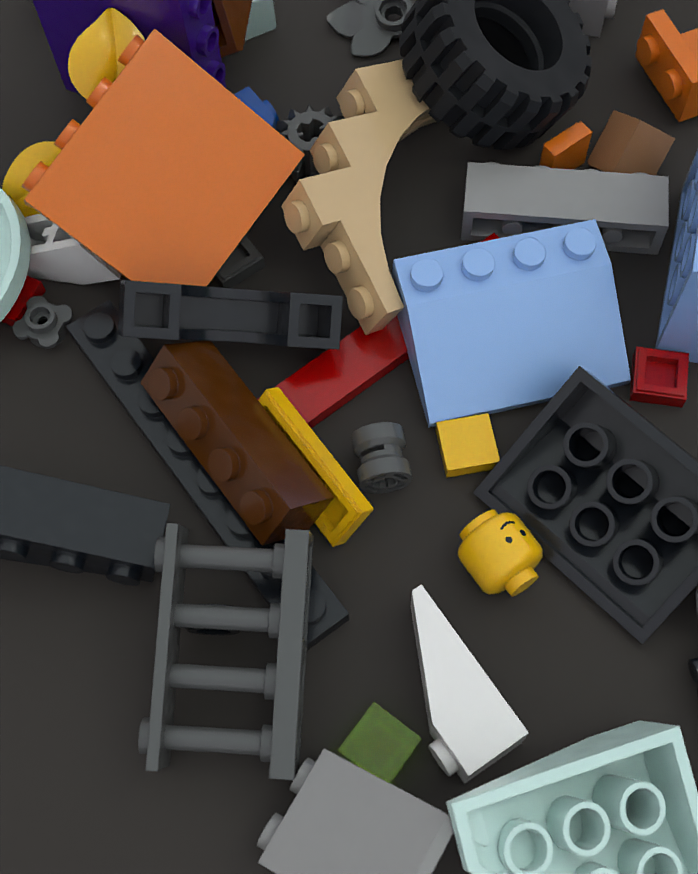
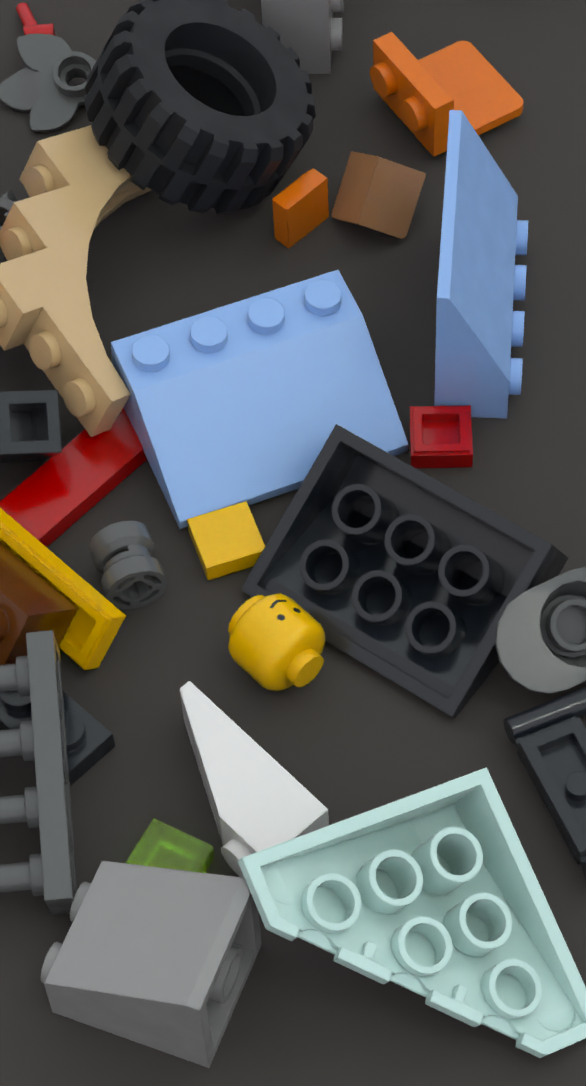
camera: 10 degrees left, 10 degrees down
(526, 199) = (376, 257): light grey brick -> none

